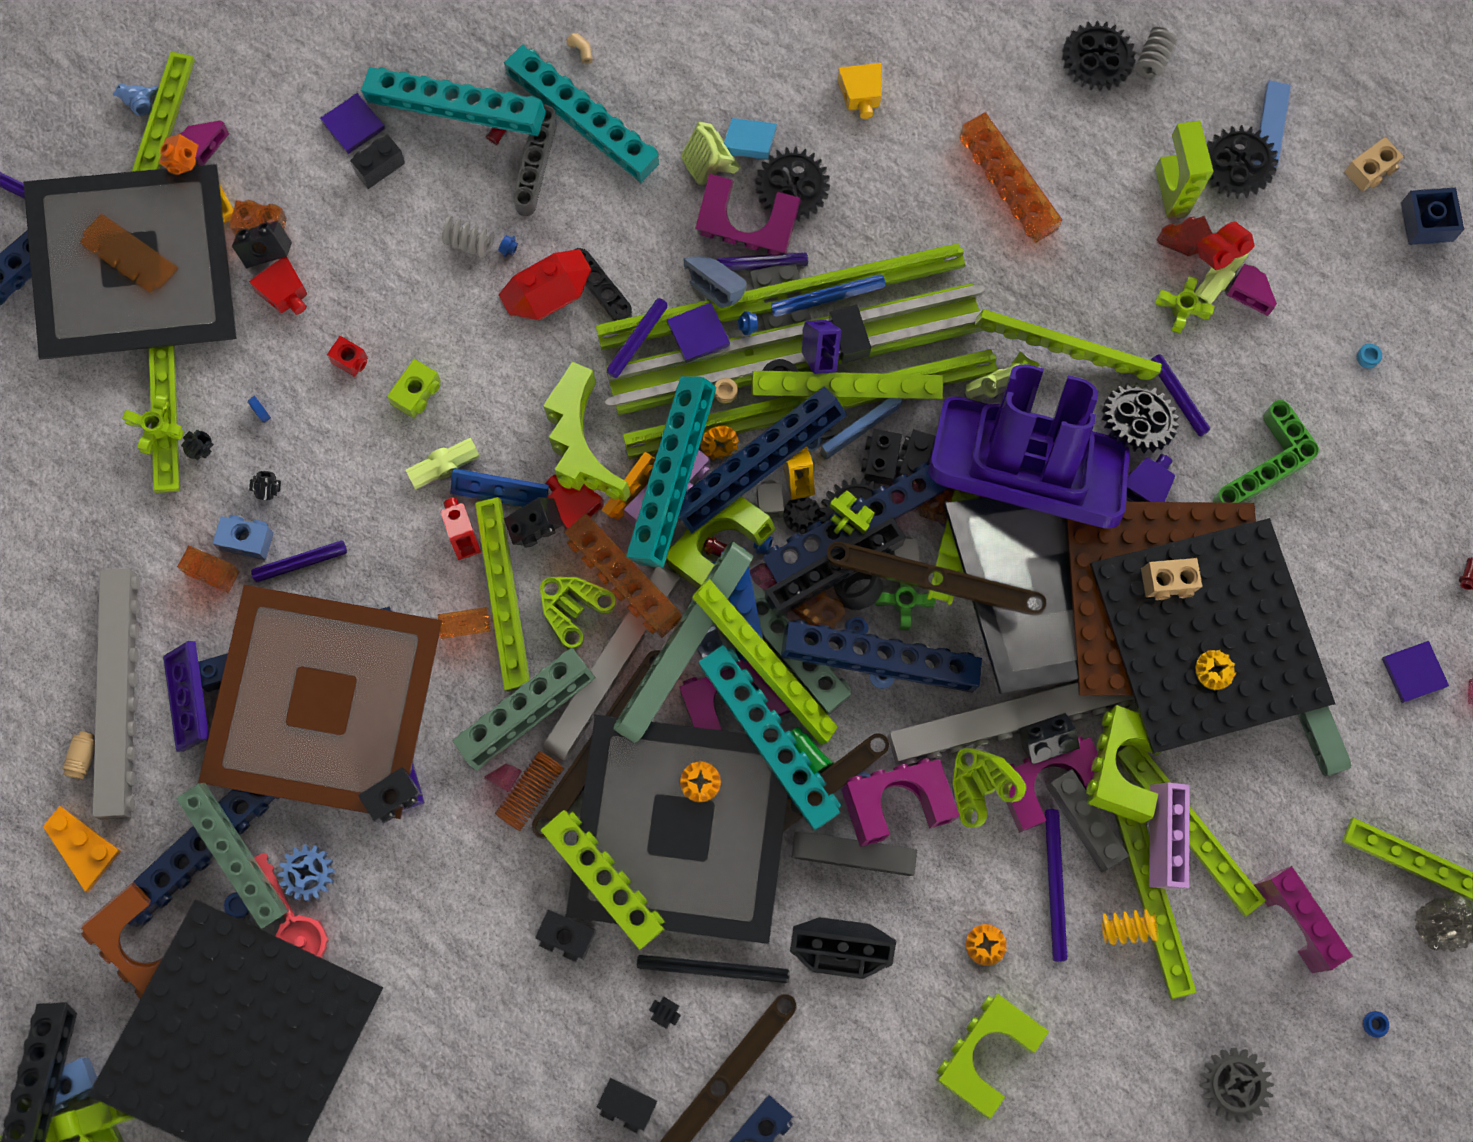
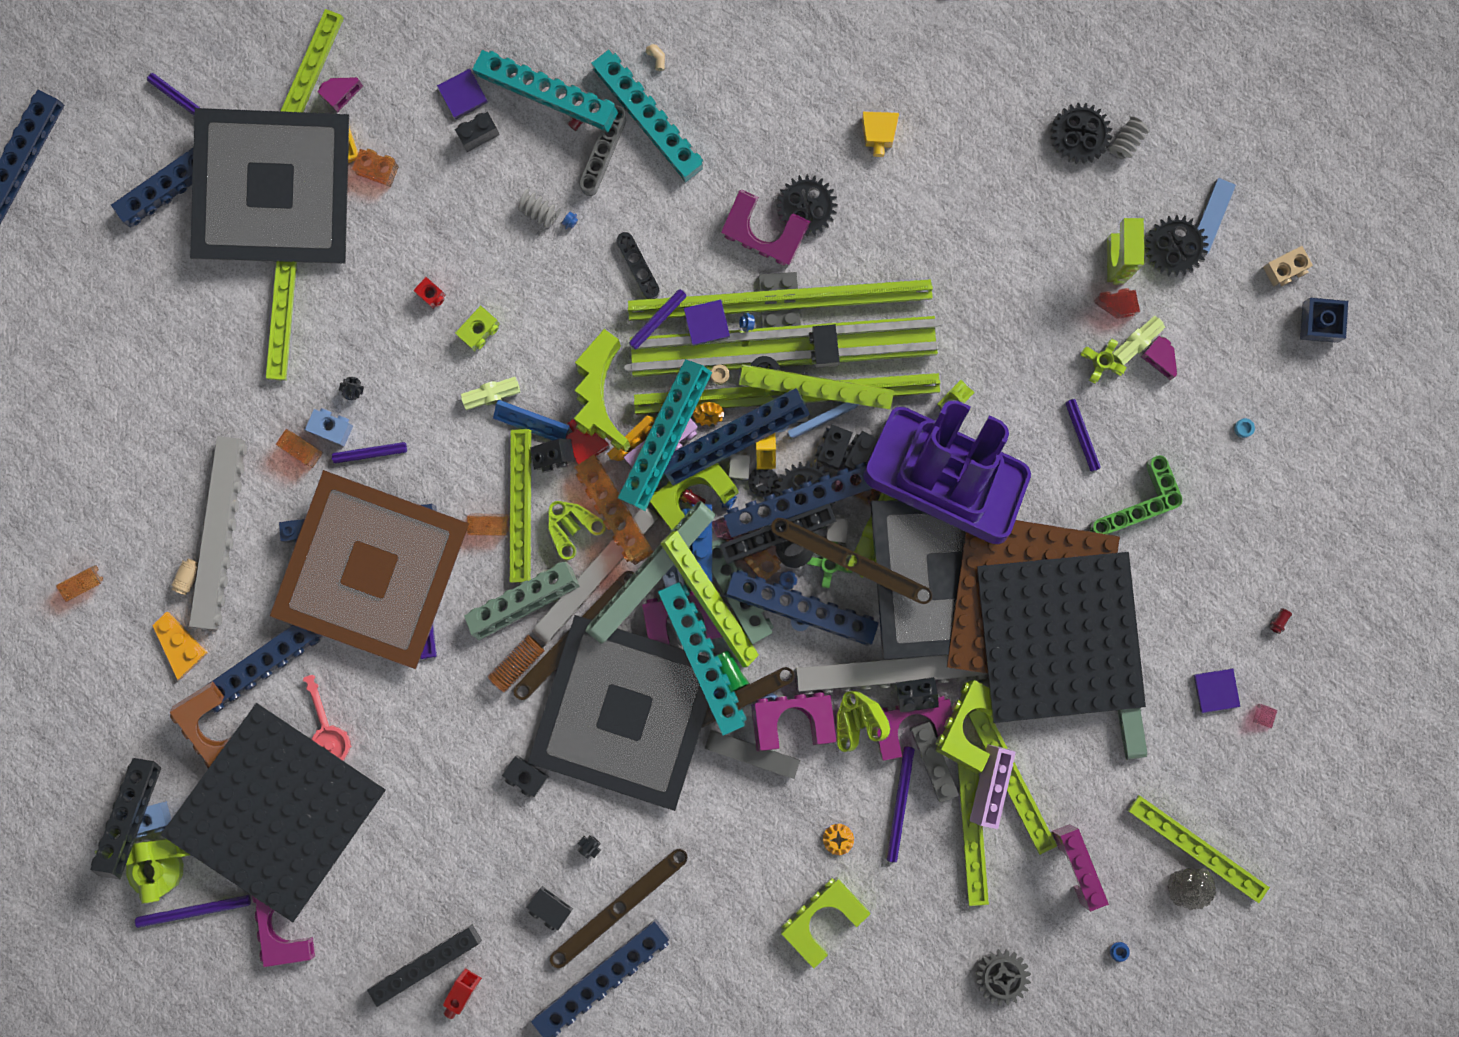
camera: 20 degrees right, 10 degrees up
(134, 254) = (274, 183): clear orange windscreen -> none
(136, 97) = (293, 44): medium blue animal -> none
(156, 415) = (278, 313): lime pin -> none
(178, 154) = (318, 104): orange brick -> none
(185, 696) = (269, 546): dark purple tile -> none
(197, 444) = (303, 346): black gear -> none
(232, 854) = (287, 675): sand green brick -> none
(235, 906) = (287, 709): blue tile -> none
(258, 409) = (354, 324): blue tile -> none
(261, 244) = (375, 189): black brick -> none
(280, 287) = (386, 226): red torso -> none
(303, 882) = (346, 689): medium blue gear -> none
(374, 797) = (398, 655): black brick -> none
(459, 529) = (495, 449): red torso -> none
(504, 776) = (498, 648): clear pink slope -> none
(546, 285) = (595, 261): red wedge -> none
(556, 833) = (568, 770): lime brick -> none
(691, 789) = (652, 676): light orange gear -> none
(707, 154) = (743, 169): yellowish green piece -> none
(713, 968) = (631, 820): black axle -> none
(715, 280) = (729, 279): sand blue brick -> none
(750, 138) = (779, 161): dark azure tile -> none
(764, 261) = (769, 267): dark purple axle -> none
(821, 345) = (800, 346): dark purple torso -> none
(828, 295) = (816, 308): blue axle -> none
(841, 507) = (791, 488): lime hips -> none
(842, 947) = (729, 822): black wedge -> none
(983, 129) = (972, 183): clear orange brick -> none
(988, 385) = (930, 404): yellowish green piece -> none
(1063, 343) = (994, 379): lime plate -> none
(1129, 927) = (948, 849): yellow piece -> none
(1140, 418) = (1045, 450): black gear -> none
(1151, 480) = (1042, 503): dark purple torso -> none
(1170, 573) = (1036, 586): tan brick -> none
(1211, 679) = (1049, 661): yellow gear -> none
(1224, 246) = (1146, 319): red brick -> none

